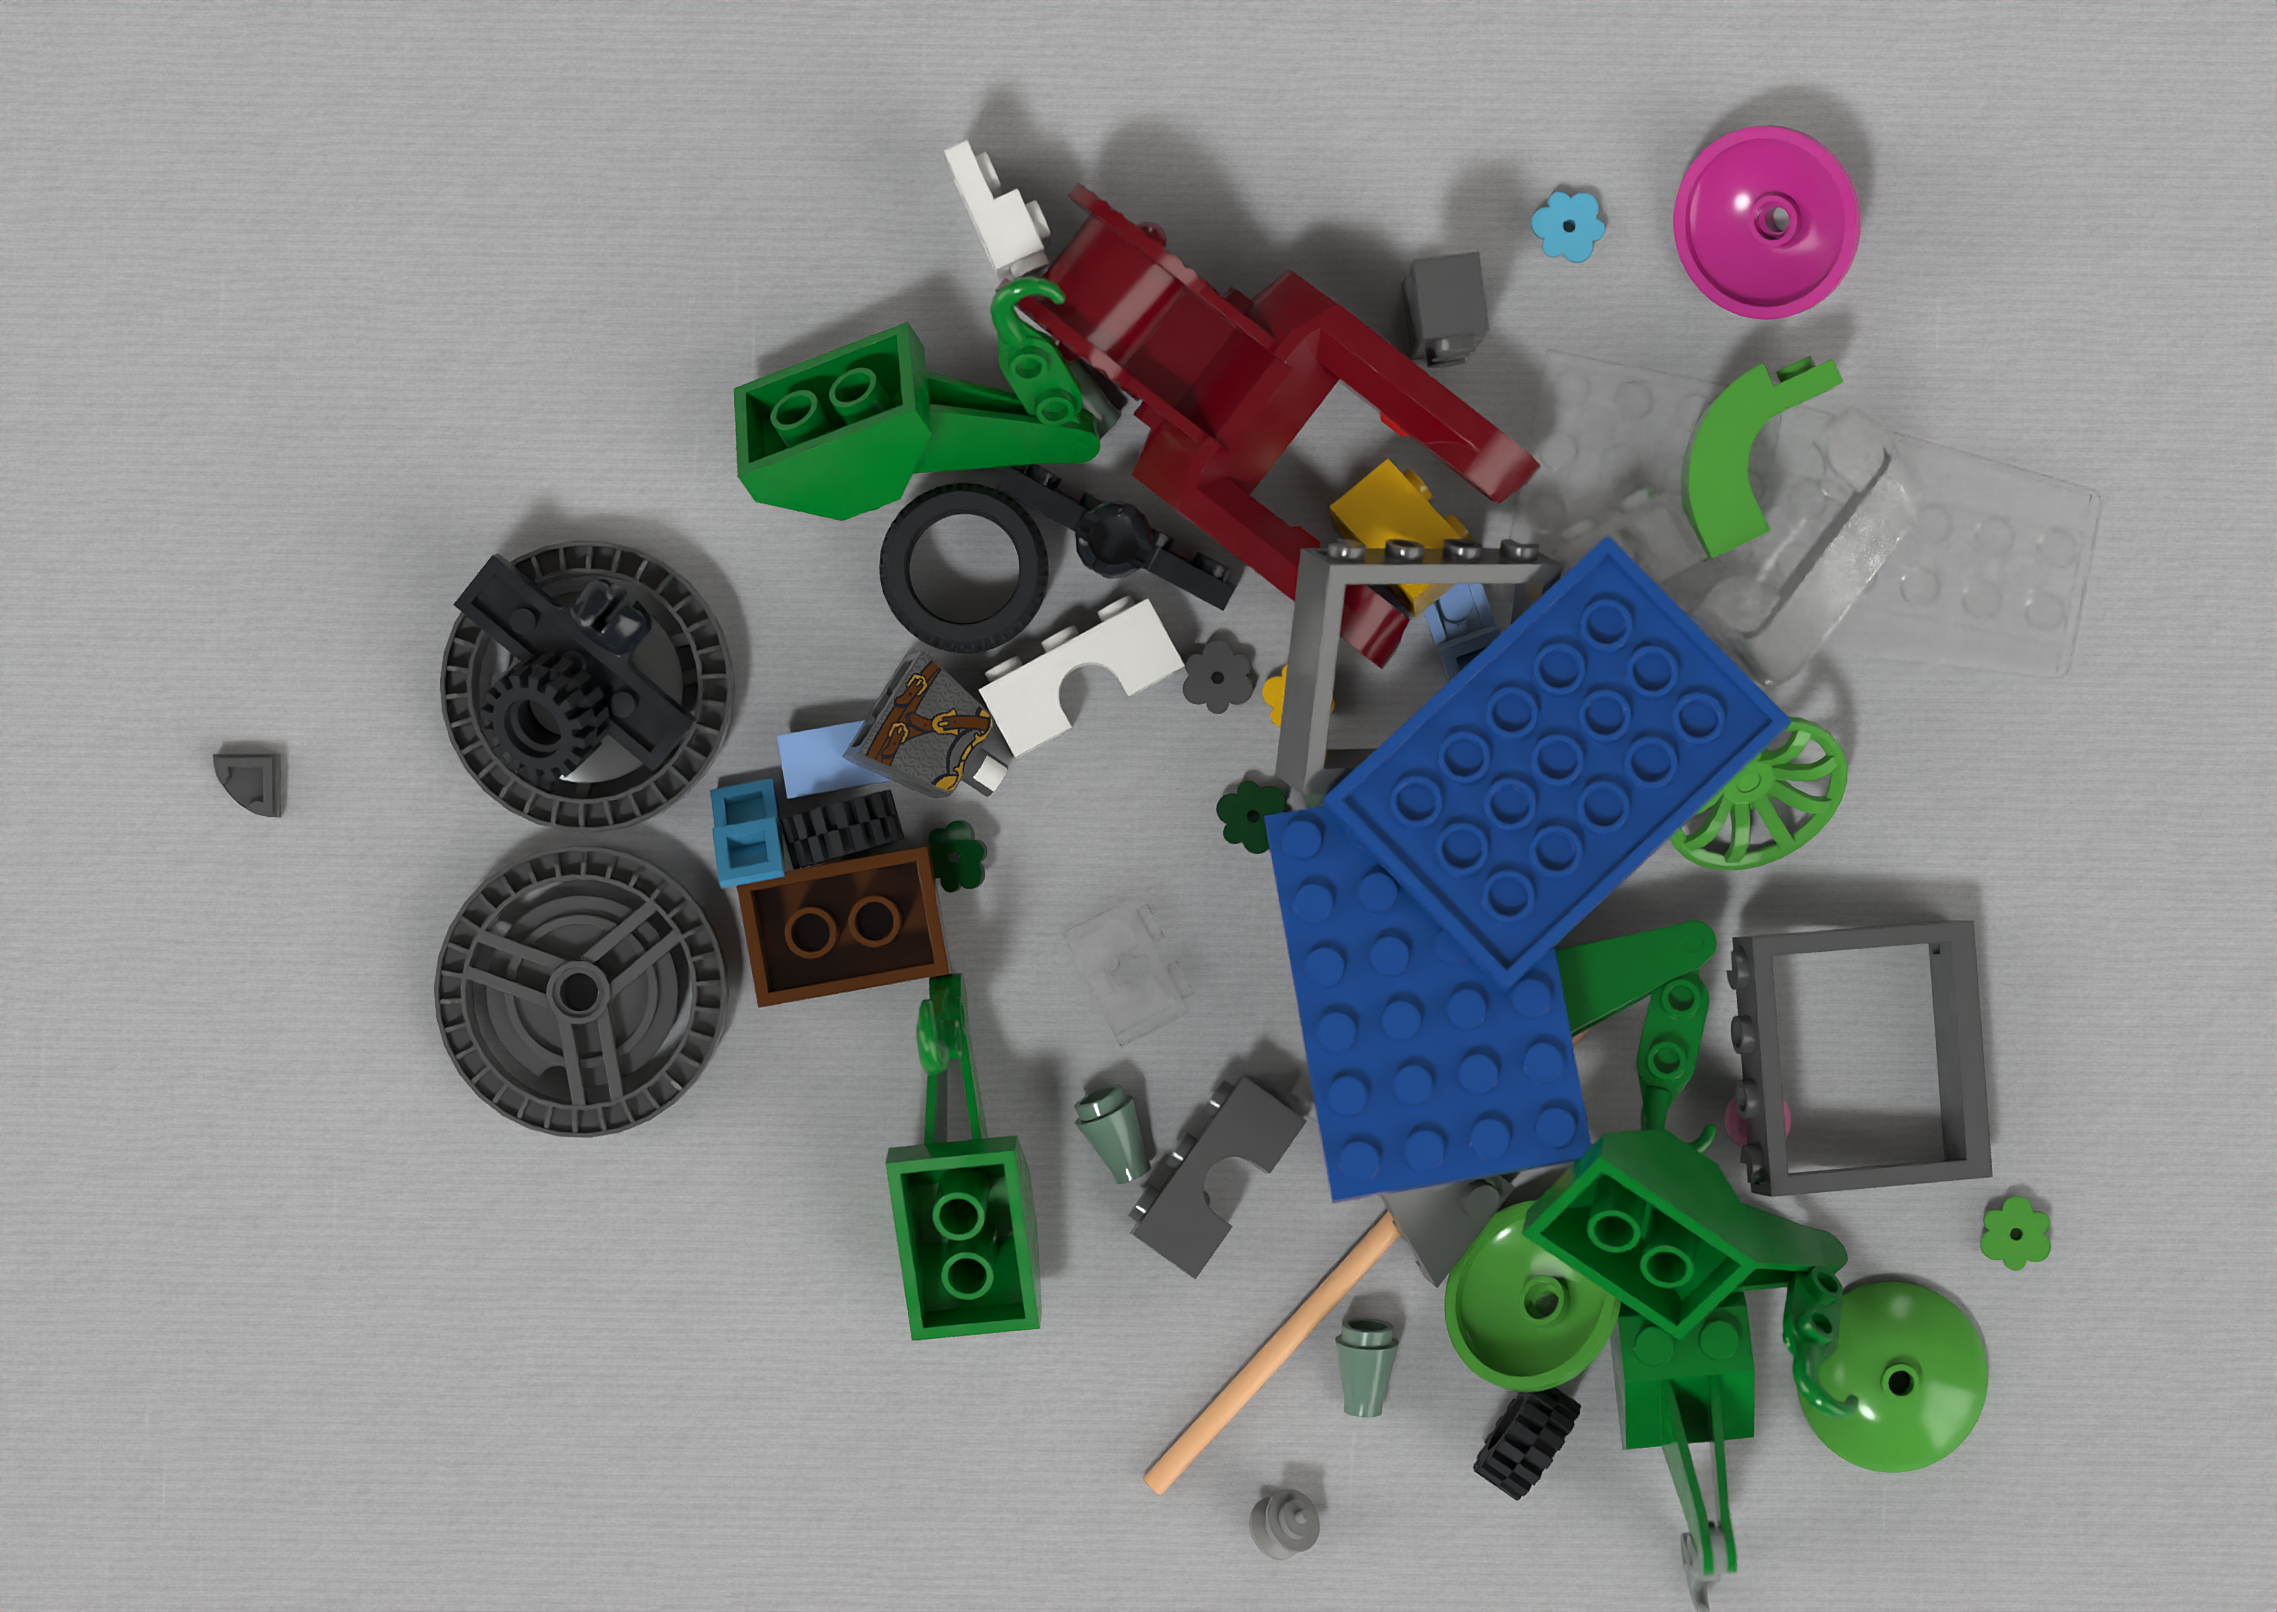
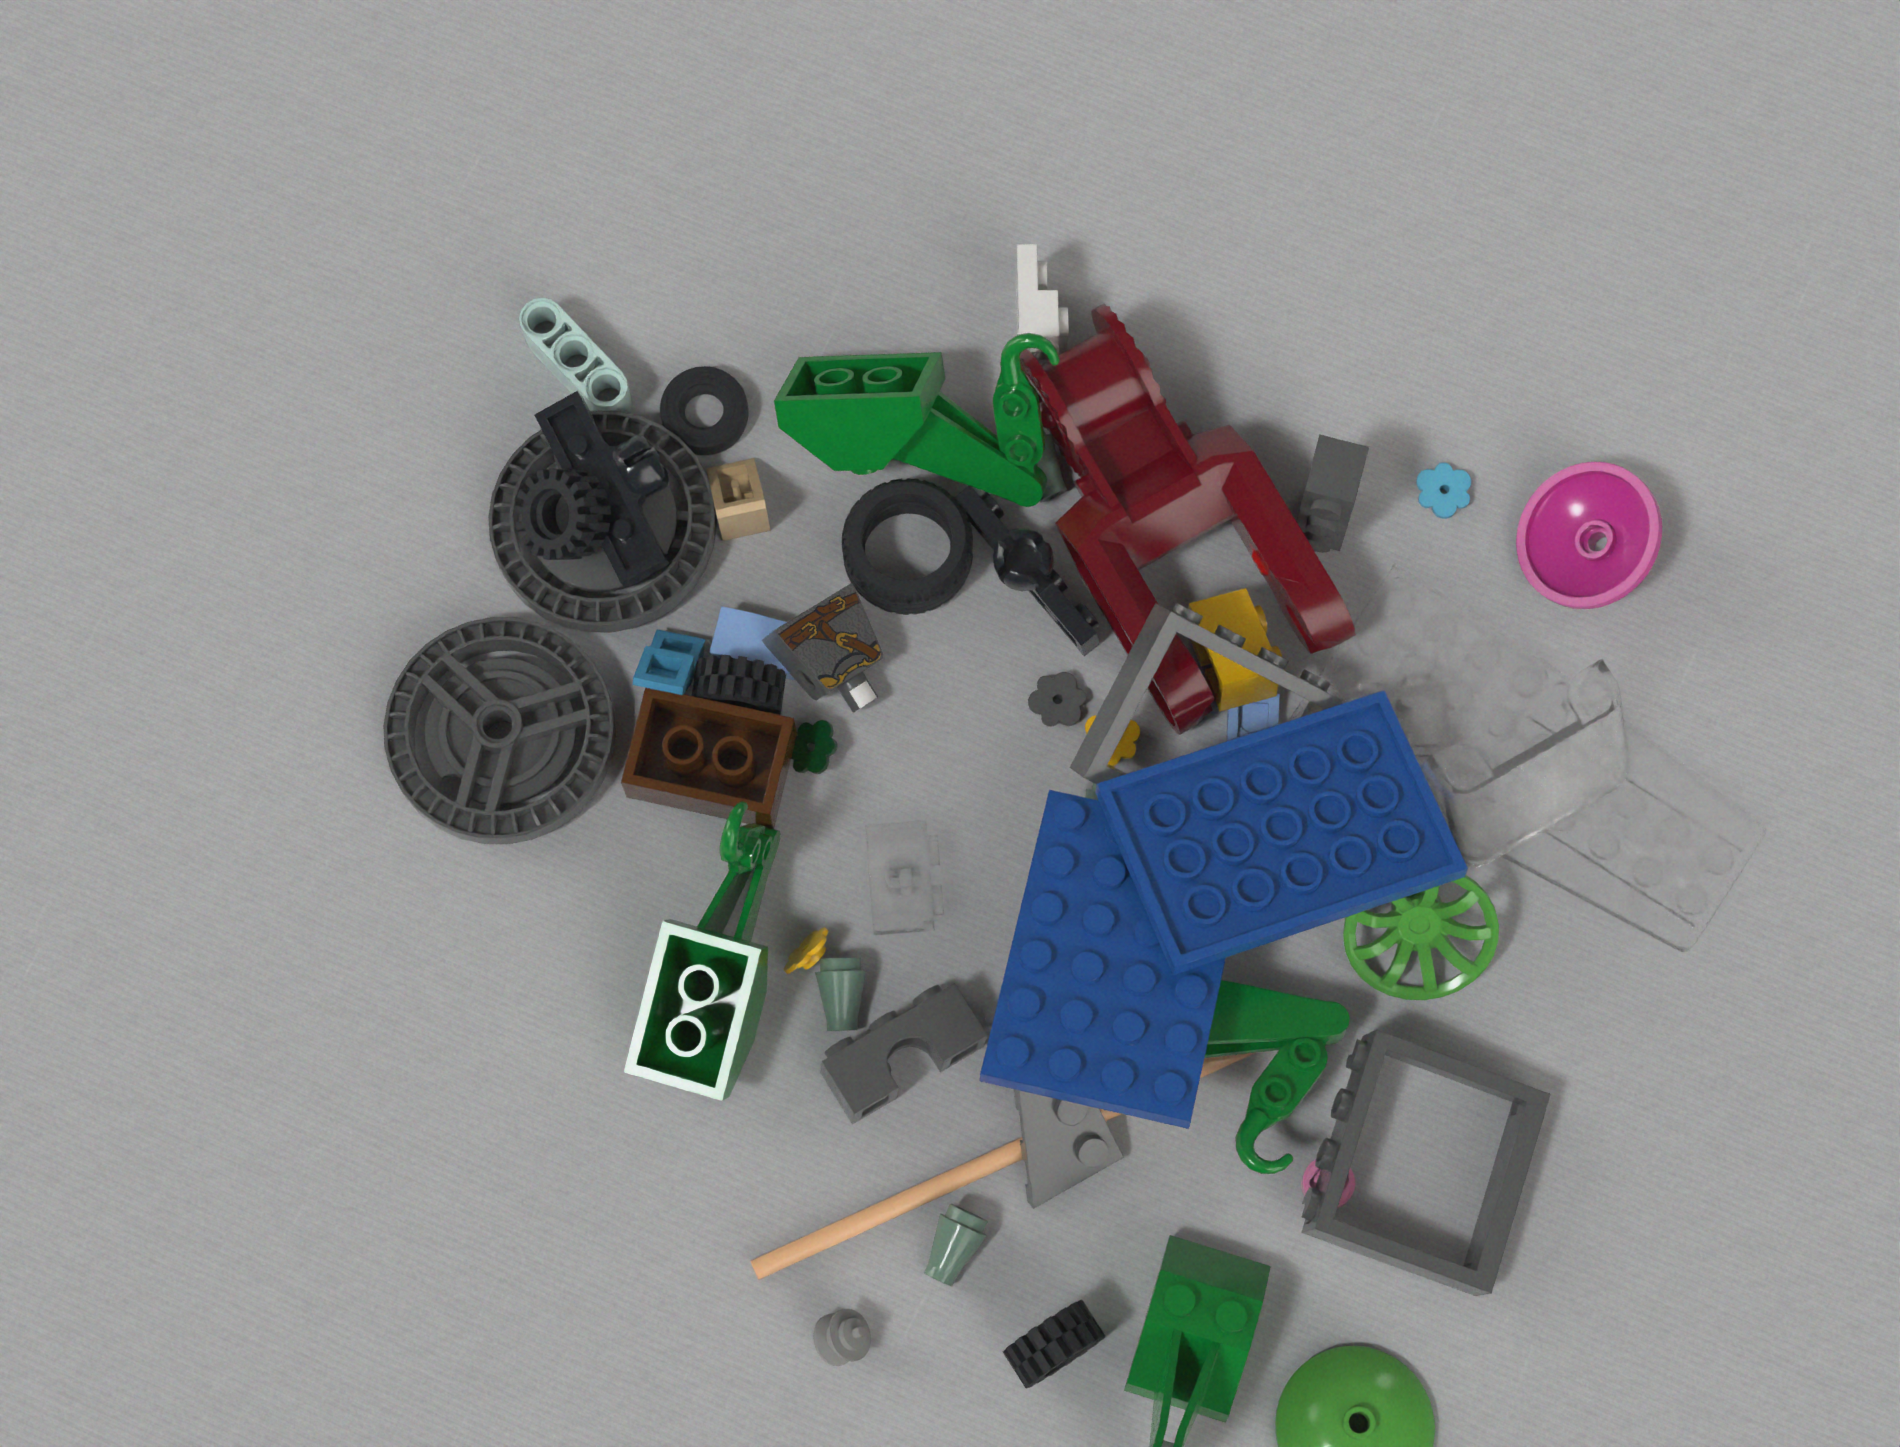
camera: 25 degrees right, 15 degrees down
(252, 781) = (337, 494): dark grey tile -> none
(435, 487) = (569, 340): none -> light aqua beam
(637, 455) = (711, 382): none -> black tyre
(733, 586) = (738, 499): none -> tan slope
(1056, 1102) = (808, 952): none -> yellow plant
(1126, 643) = (998, 644): white arch -> none
(1233, 811) = (1029, 799): dark green plant -> none
(1501, 1303) = (1103, 1236): bright green dish -> none
(1675, 1240) = (1230, 1220): green slope -> none
(1716, 458) = (1515, 656): bright green arch -> none
(2031, 1241) = (1500, 1340): bright green plant -> none

